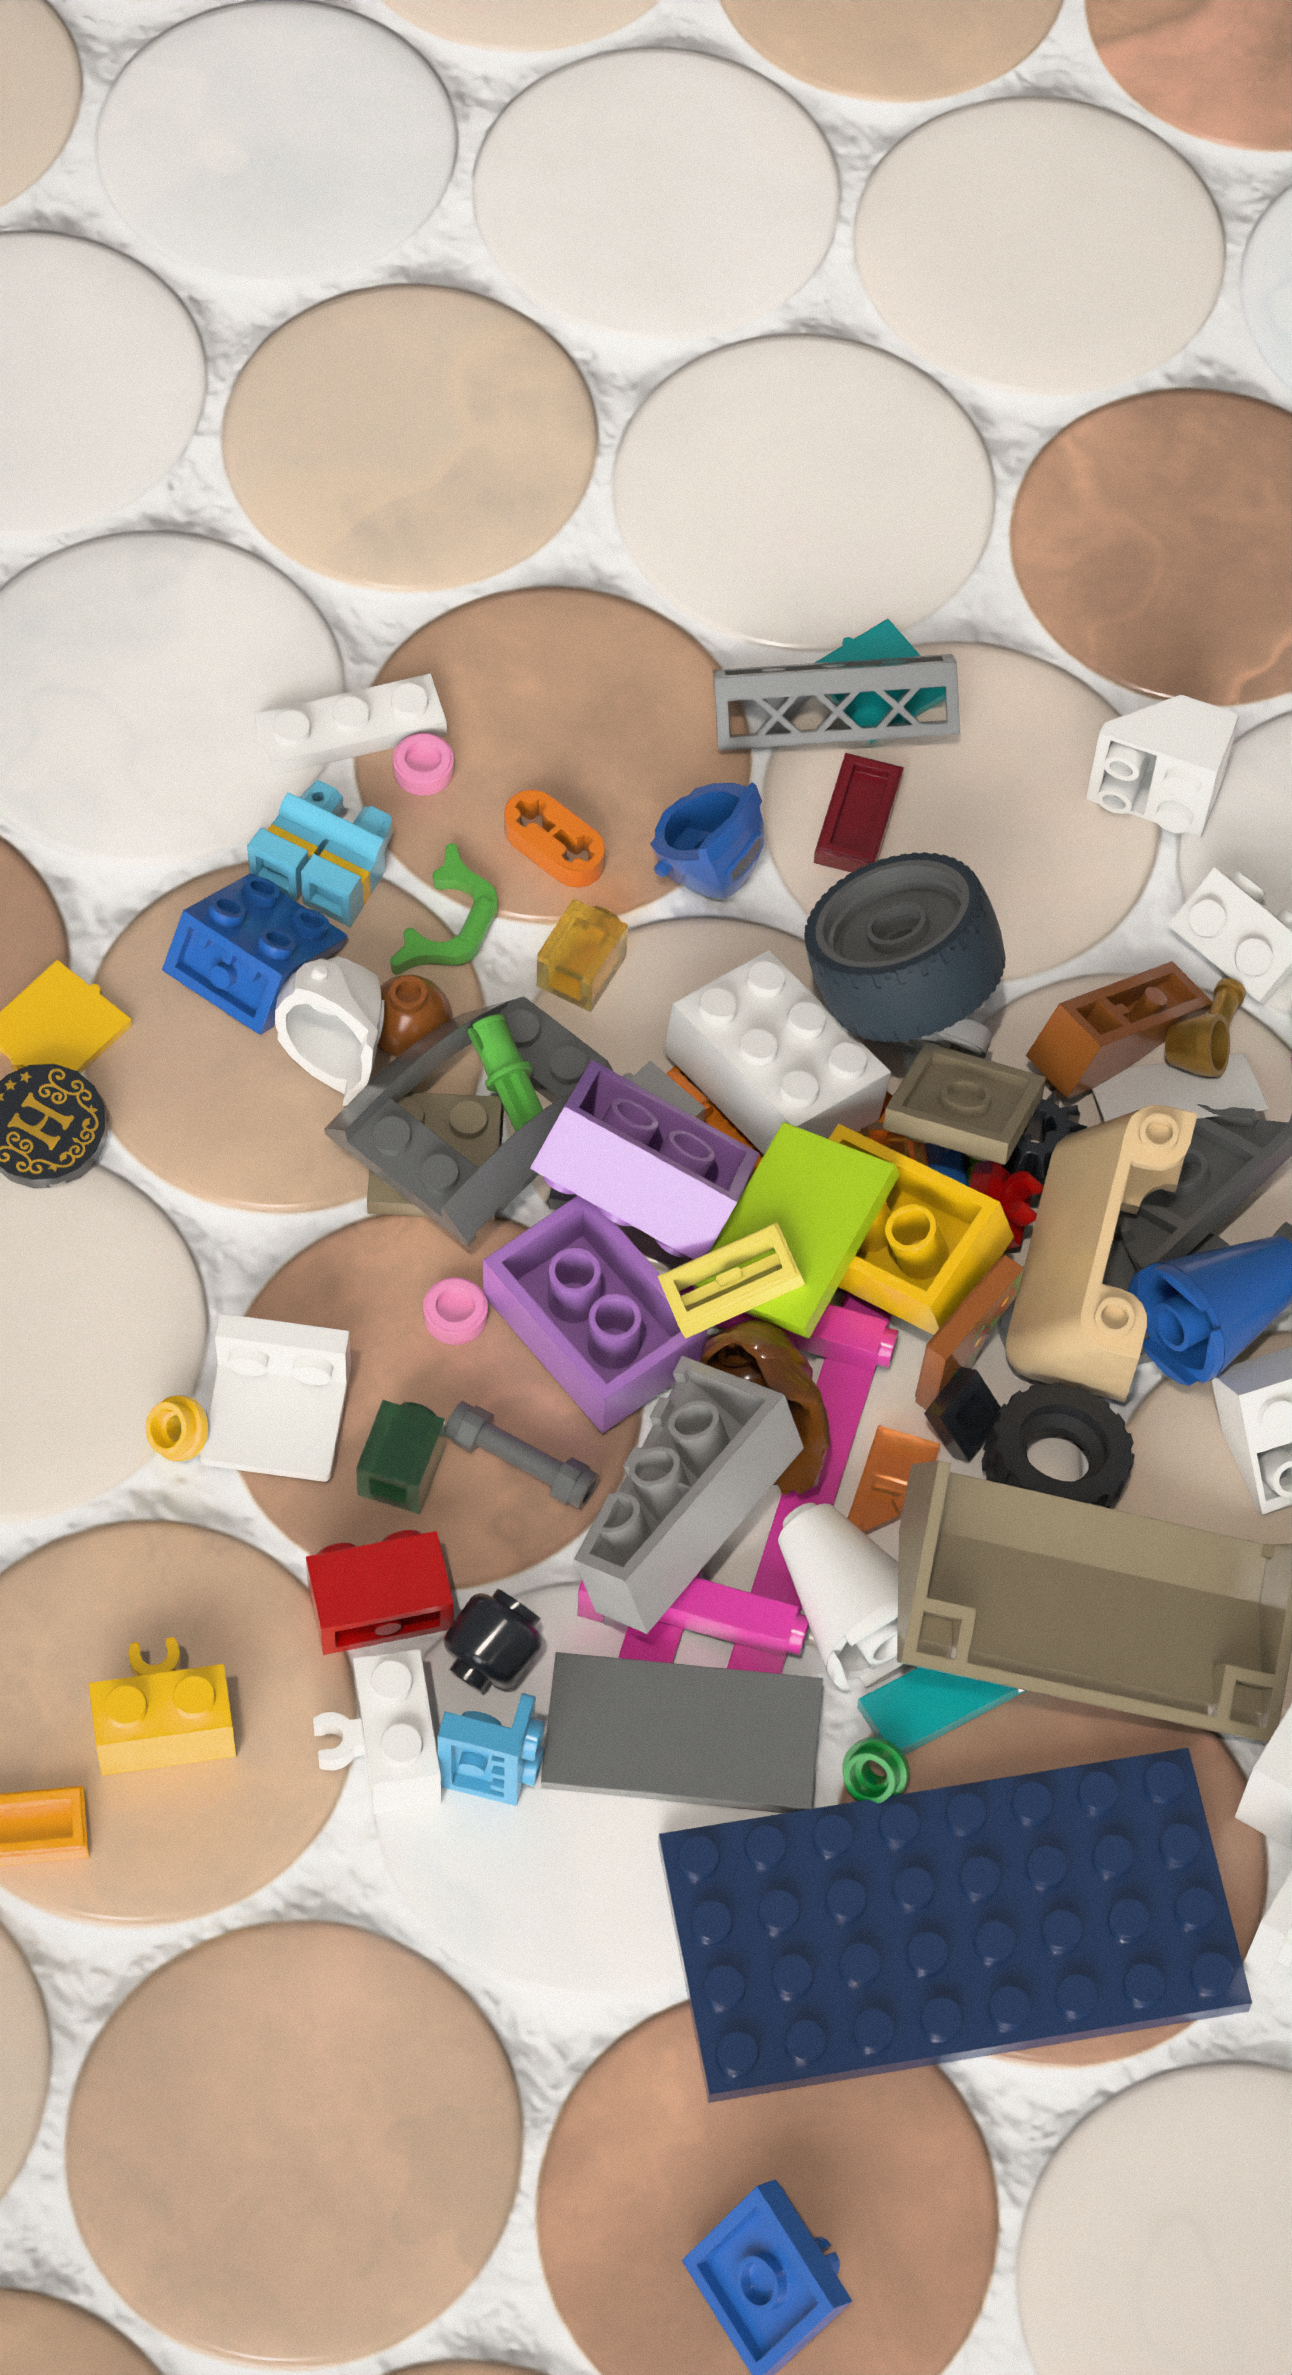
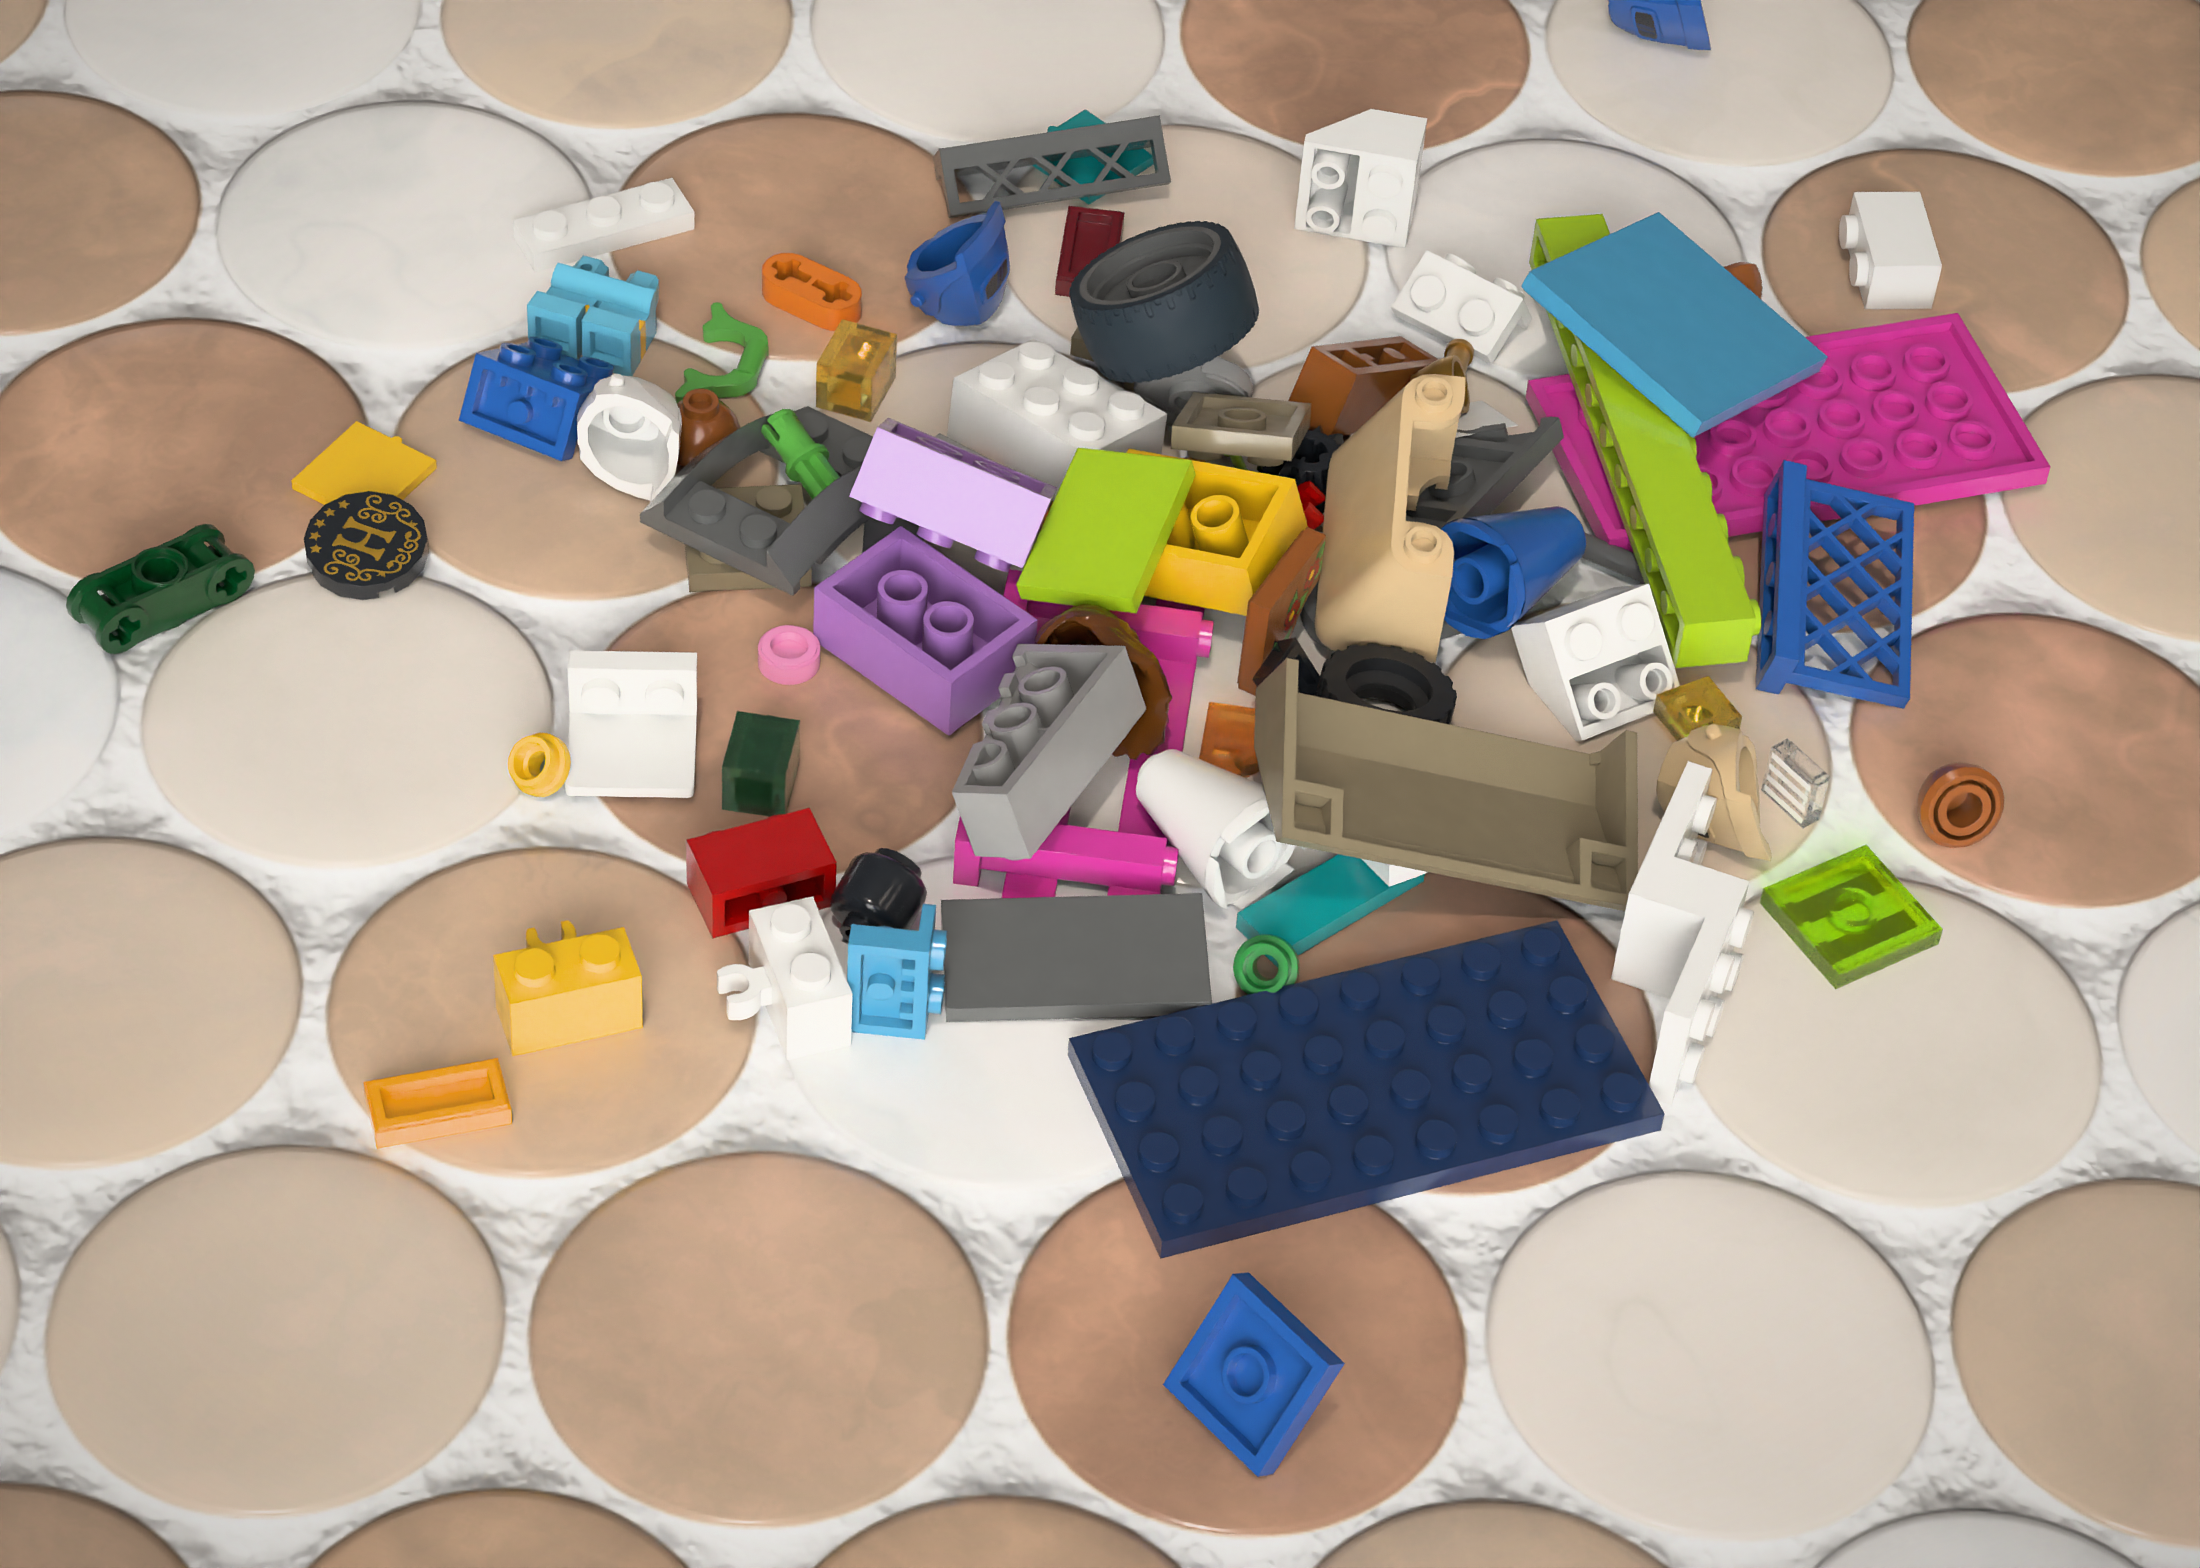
camera: 10 degrees left, 15 degrees down
(423, 764) = (677, 248): bright pink tile -> none
(473, 1428) = (925, 771): dark grey bar -> none
(734, 1289) = (1058, 576): light yellow tile -> none

